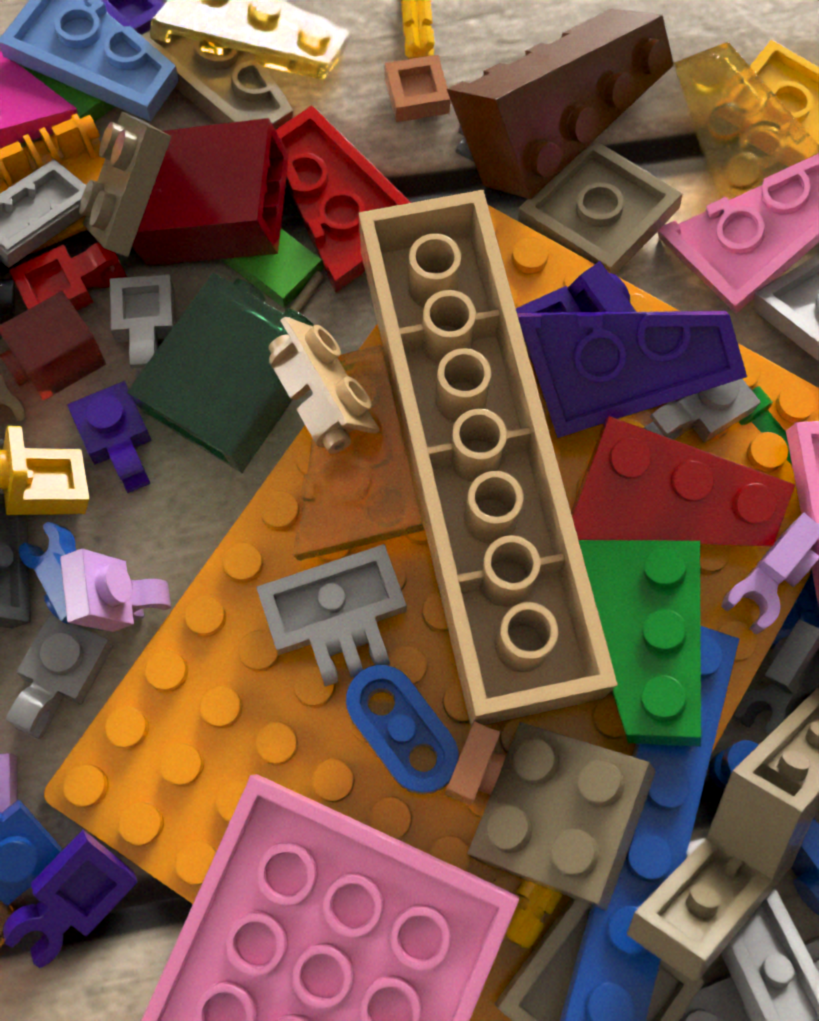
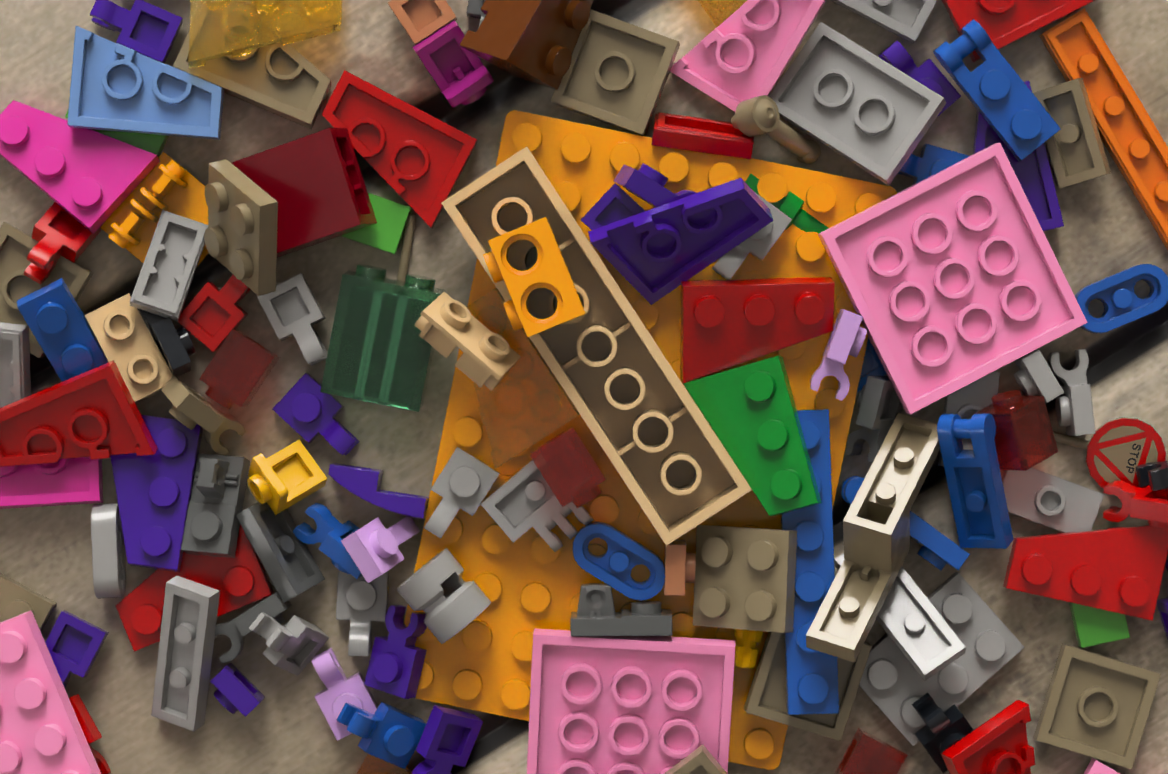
camera: 15 degrees left, 20 degrees up
(67, 750) = (395, 659): none -> dark purple plate
(137, 529) = (367, 484): none -> dark purple slope
(158, 682) = (444, 596): none -> light grey wheel
(240, 563) = (463, 486): none -> light grey plate
(347, 788) = (598, 617): none -> dark grey hinge
(386, 572) = (569, 468): none -> clear red brick
(428, 141) = (453, 68): none -> magenta bracket
(443, 314) = (548, 273): none -> light orange brick
(669, 290) = (700, 136): none -> red tile
(753, 292) = (762, 116): none -> dark tan piece

